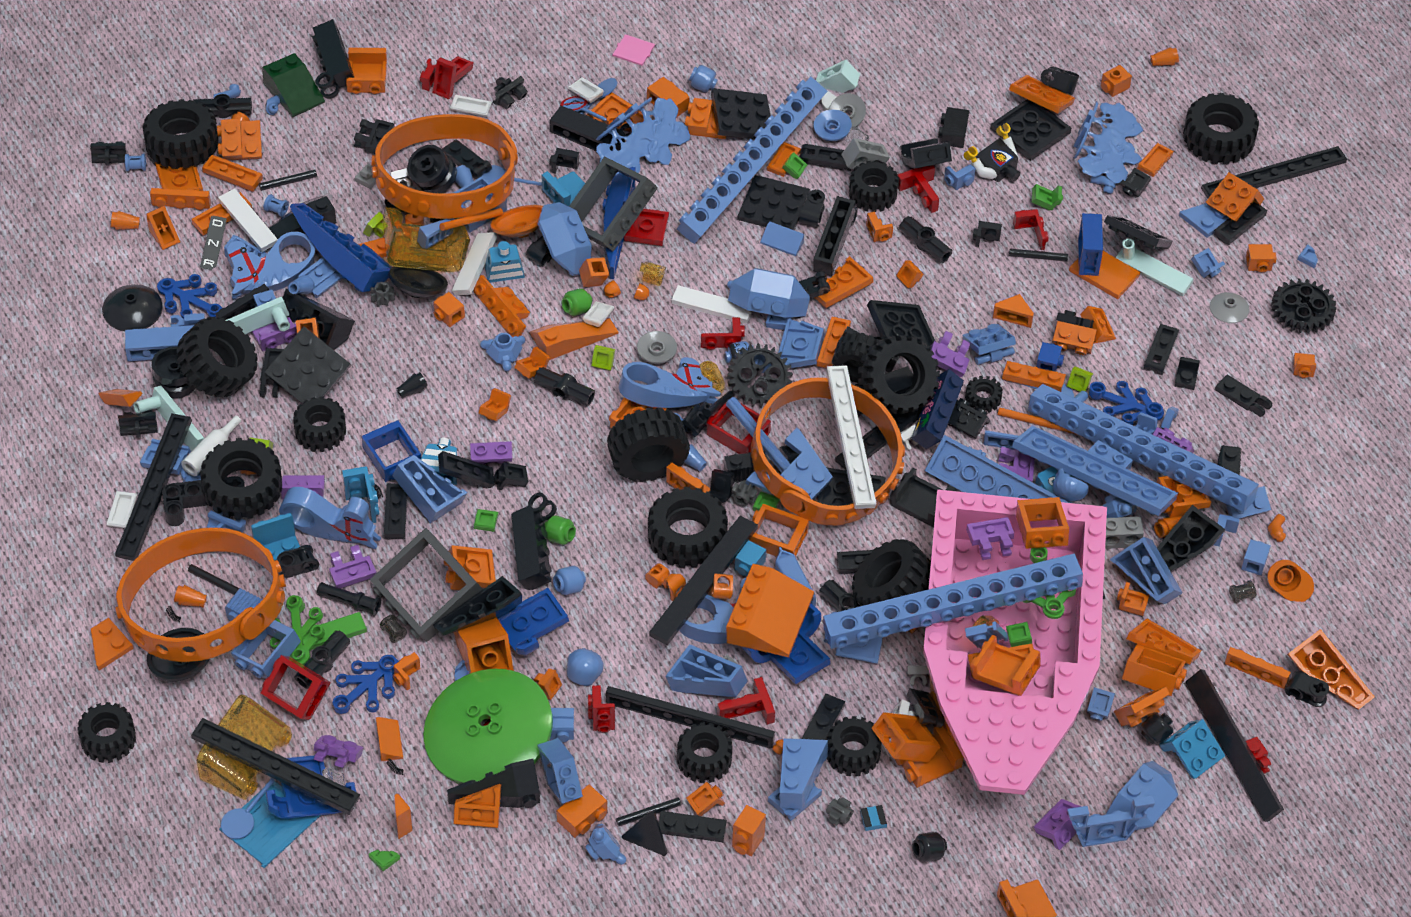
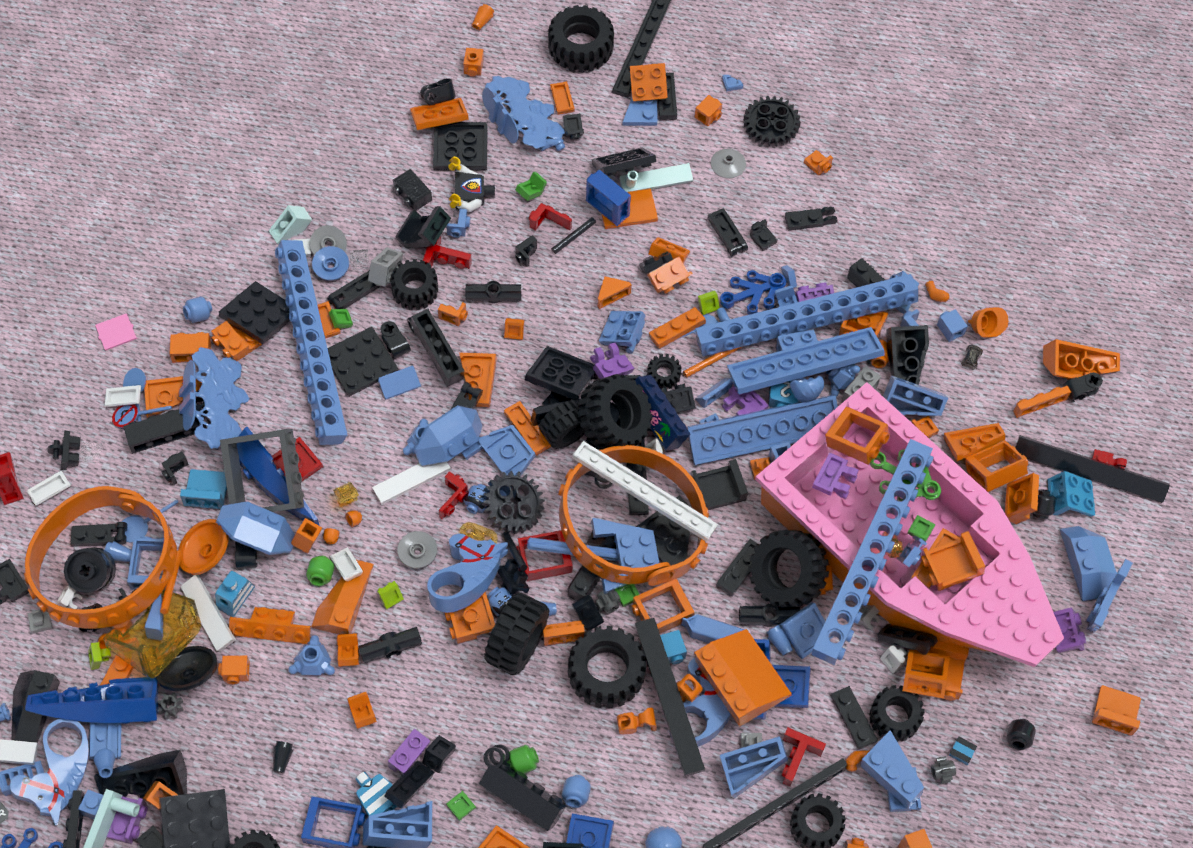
camera: 50 degrees left, 10 degrees up
(1050, 357) = (672, 304): blue brick -> none
(1207, 264) = (684, 145): medium blue bracket -> none

